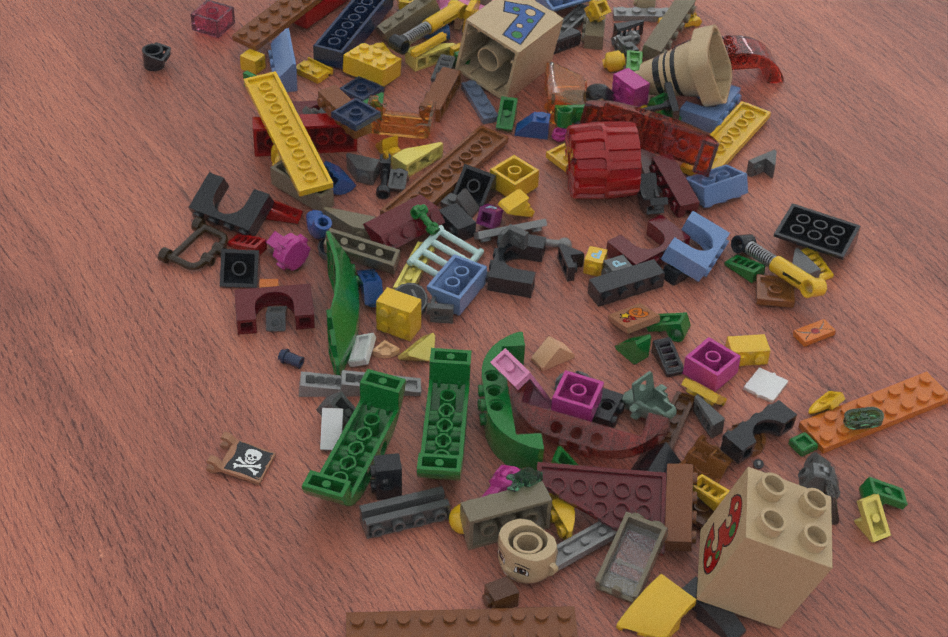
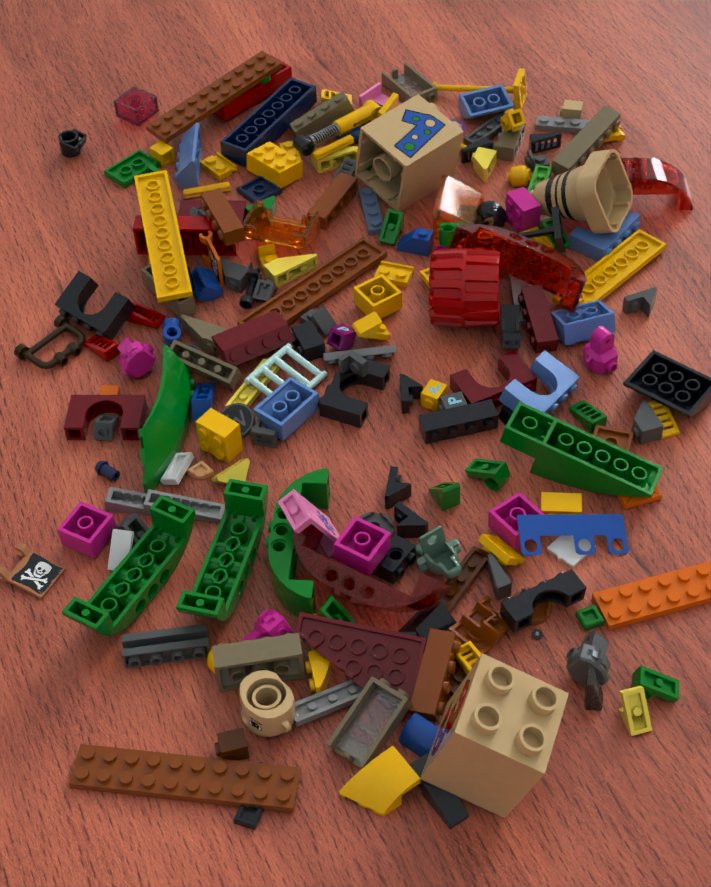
camera: 15 degrees right, 5 degrees up
(223, 77) = (133, 165): none -> green tile
(240, 268) = (85, 372): black slope -> none
(290, 413) = (87, 529): none -> dark pink brick
(306, 93) = (196, 191): none -> yellow axle
(341, 154) = (213, 259): none -> orange flag
(355, 114) = (228, 222): dark blue tile -> none
(387, 476) = (156, 607): black brick -> none
(420, 211) = (267, 329): green bar -> none
(478, 183) = (339, 302): black slope -> none
(525, 477) = (282, 627): clear green plate -> none
(527, 154) = (397, 273): none -> yellow plate
(551, 354) = (361, 491): light nougat slope -> none
(554, 243) = (410, 371): light grey bar -> none
(575, 51) = (484, 162): none -> light yellow slope
(585, 348) = (396, 489): none -> black slope
(613, 377) = (409, 522): none -> black slope
(632, 36) = (546, 149): light grey bar -> none
(634, 318) = (454, 461): nougat tile -> none
(659, 350) = (477, 495): black slope -> none
(679, 564) = (418, 735): none -> blue brick
(742, 212) = (600, 353): none -> dark pink piece
(752, 303) = (578, 457): none -> green slope
(771, 362) = (576, 525): none -> blue piece
(806, 283) = (641, 442): yellow piece -> none
(828, 401) = (628, 574): yellow plate -> none
(863, 418) = (656, 598): clear green plate -> none

